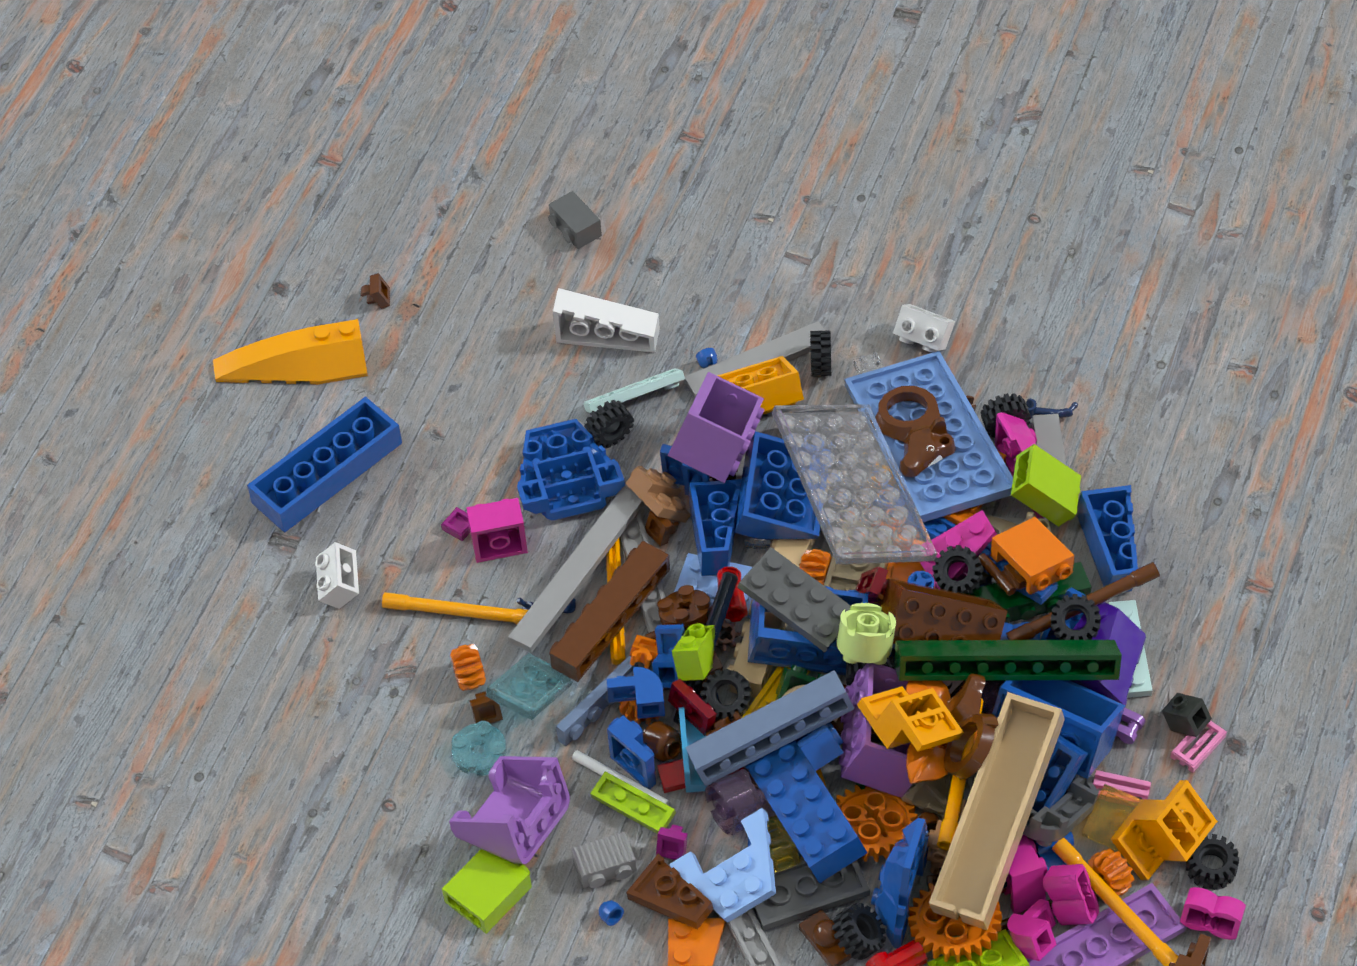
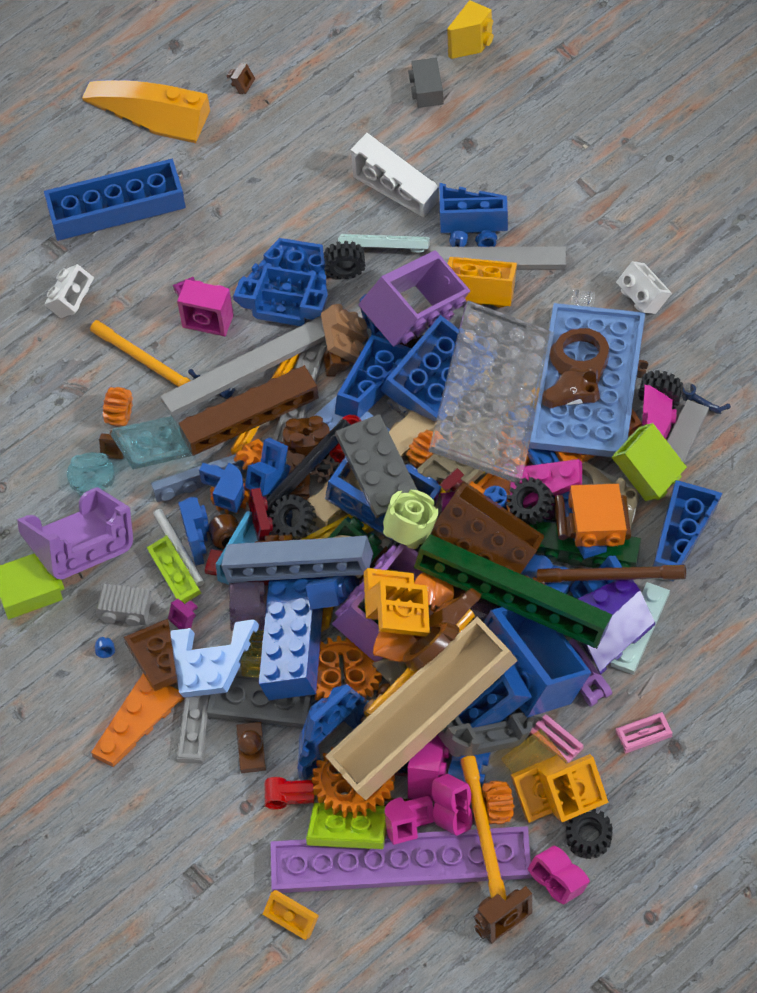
camera: 30 degrees right, 5 degrees up
(591, 151) = (470, 31): none -> yellow slope
(694, 652) = (283, 472): lime slope -> none
(705, 324) = (472, 211): none -> blue wedge
(735, 346) = (486, 239): none -> blue plate
(820, 353) = (545, 273): black tyre -> none
(859, 931) = (261, 755): black tyre -> none
(1080, 604) = (583, 573): black tyre -> none
(1186, 714) = (645, 703): pearl dark grey brick -> none

